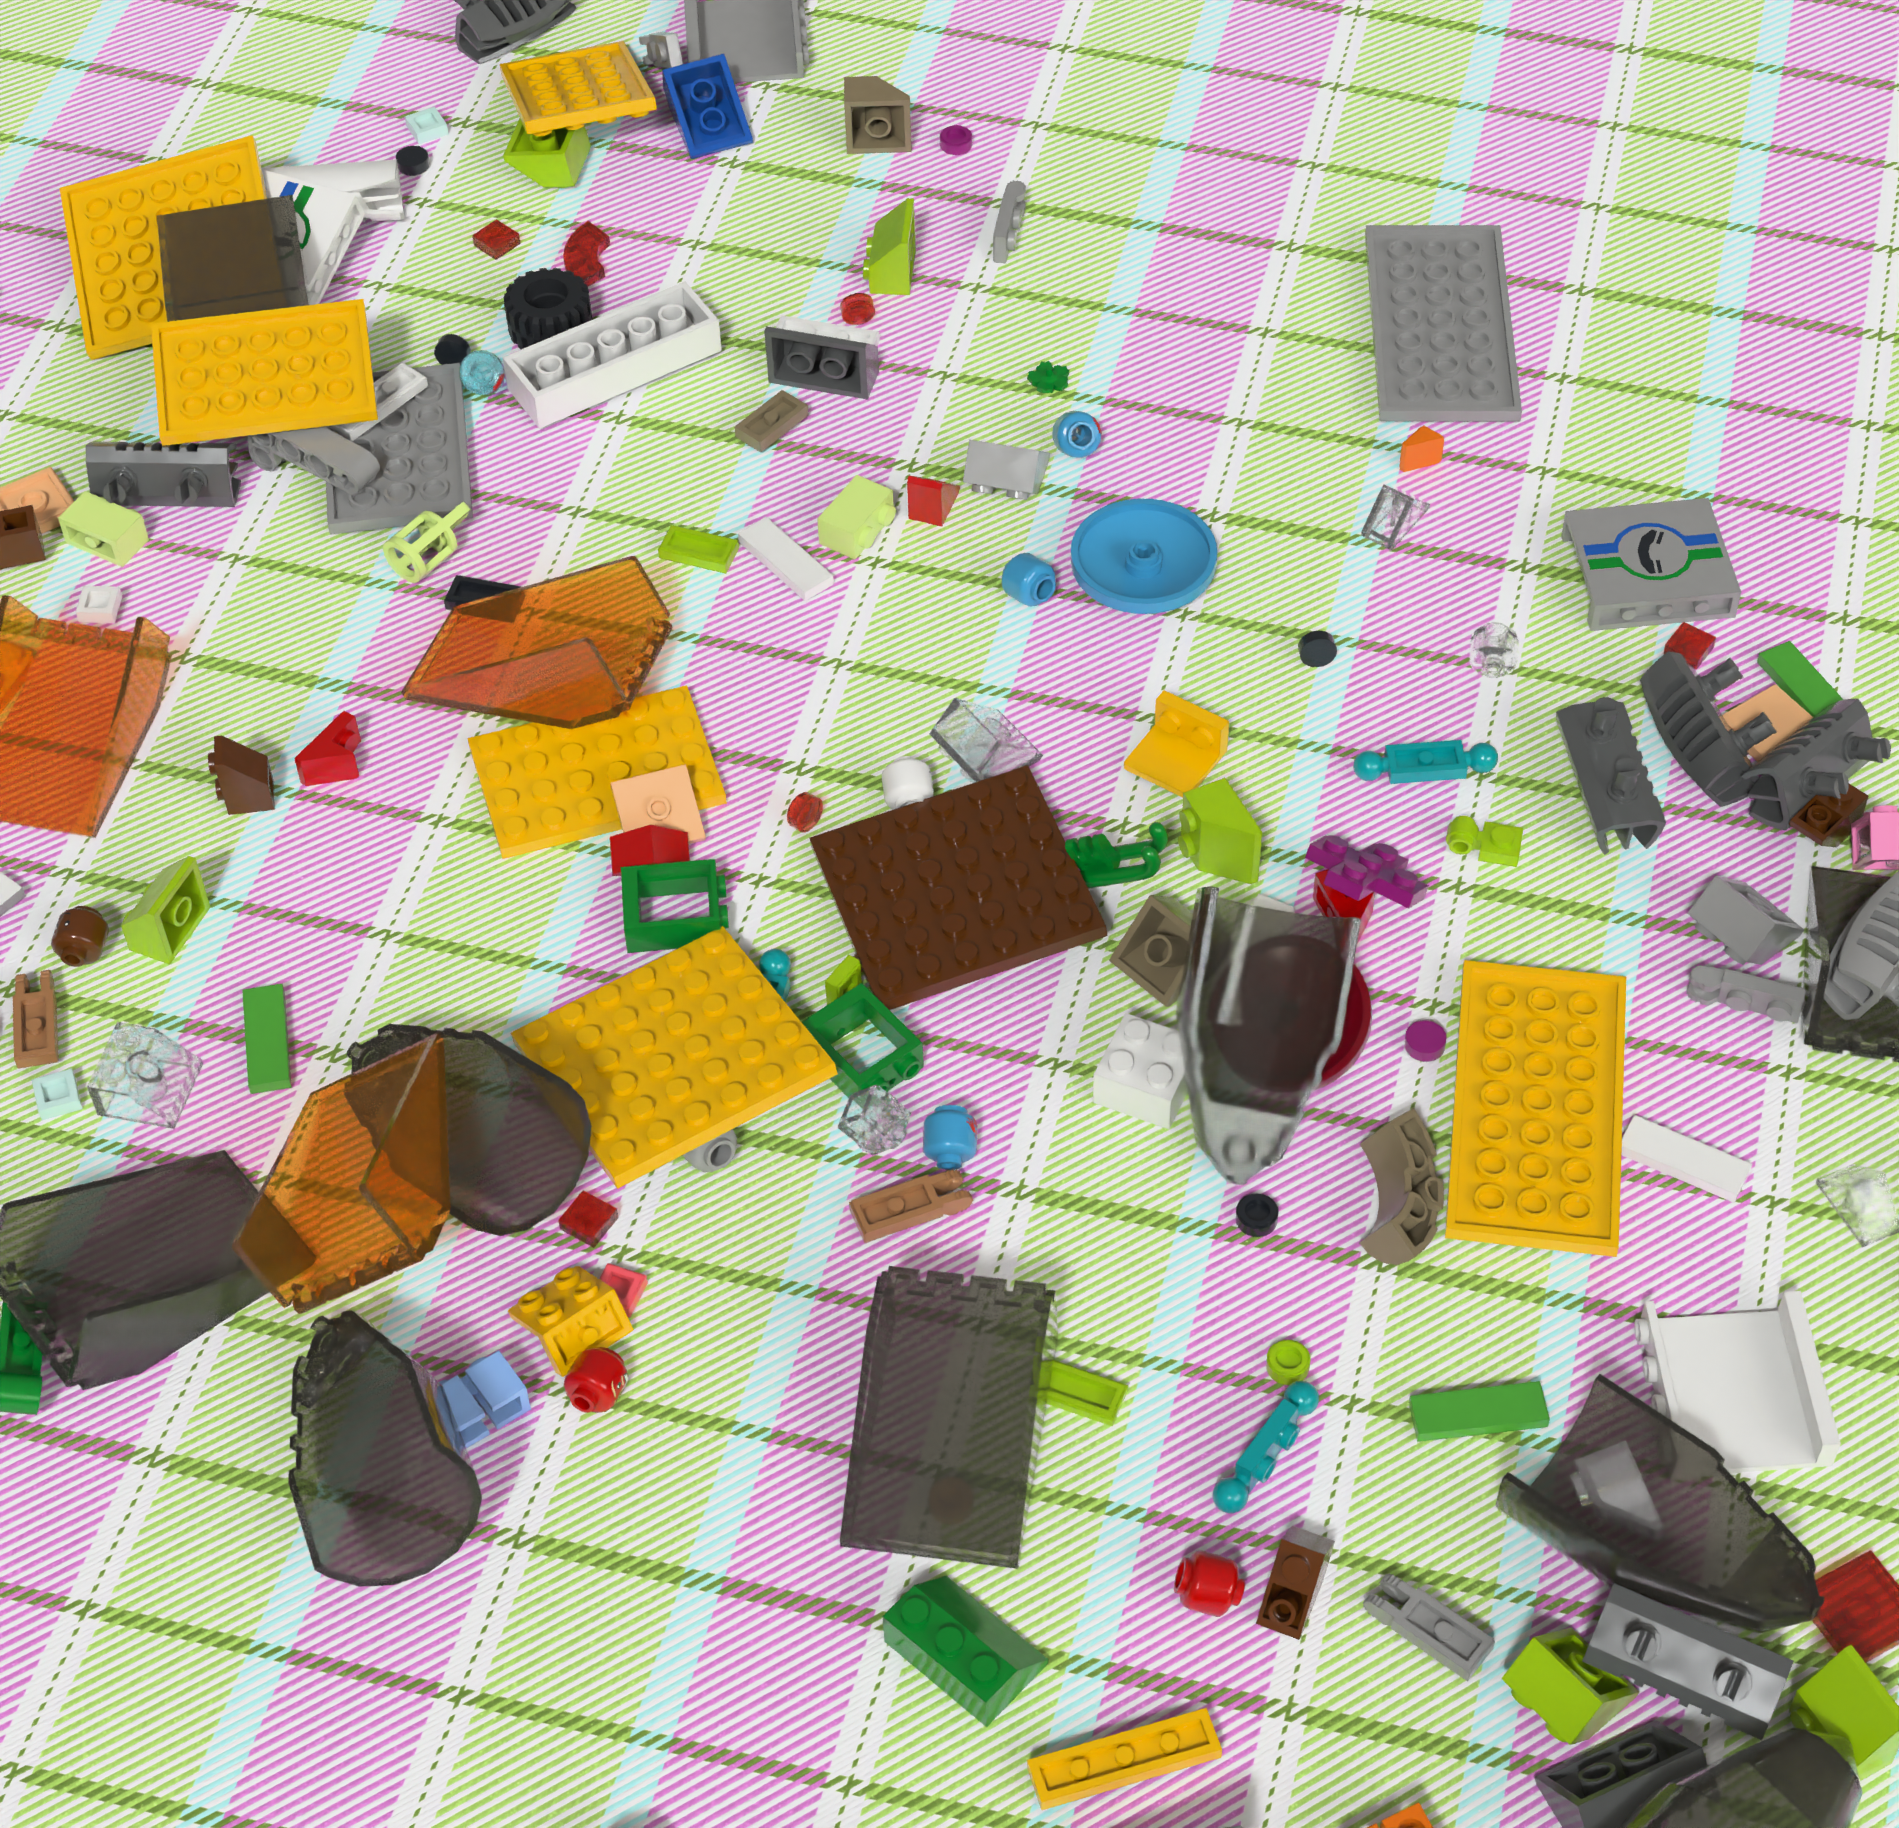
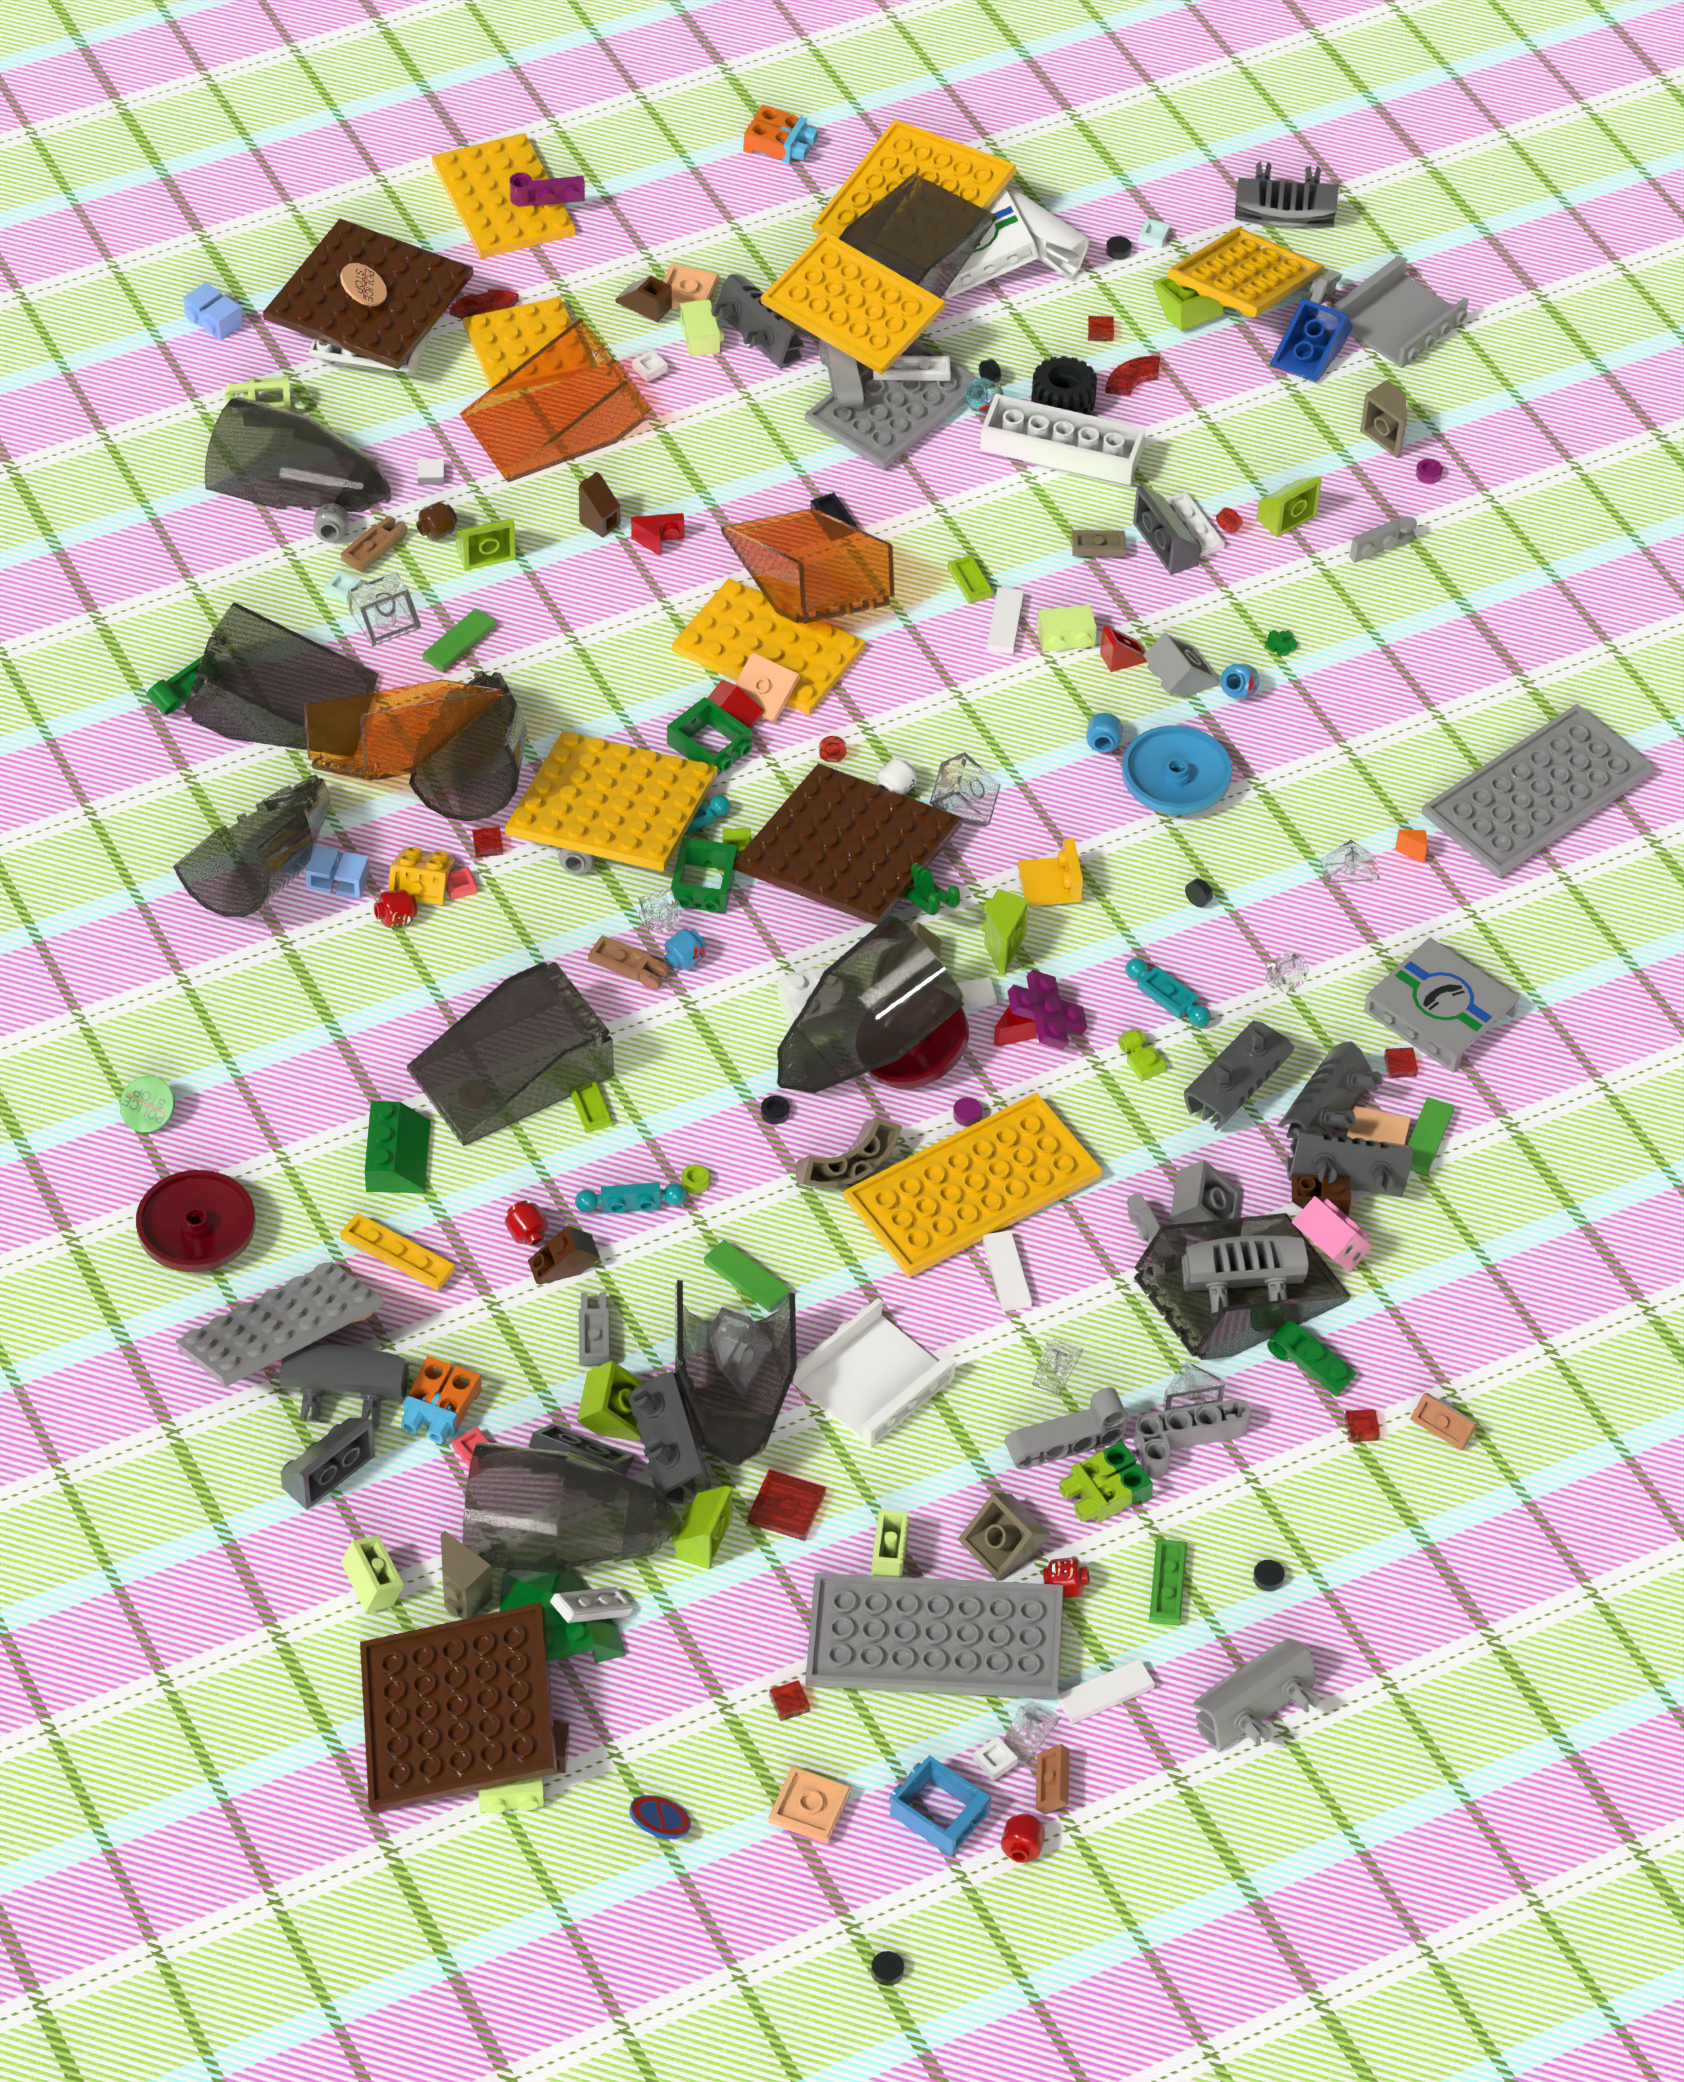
camera: 45 degrees right, 0 degrees up
(435, 534) = (847, 461): yellowish green piece -> none

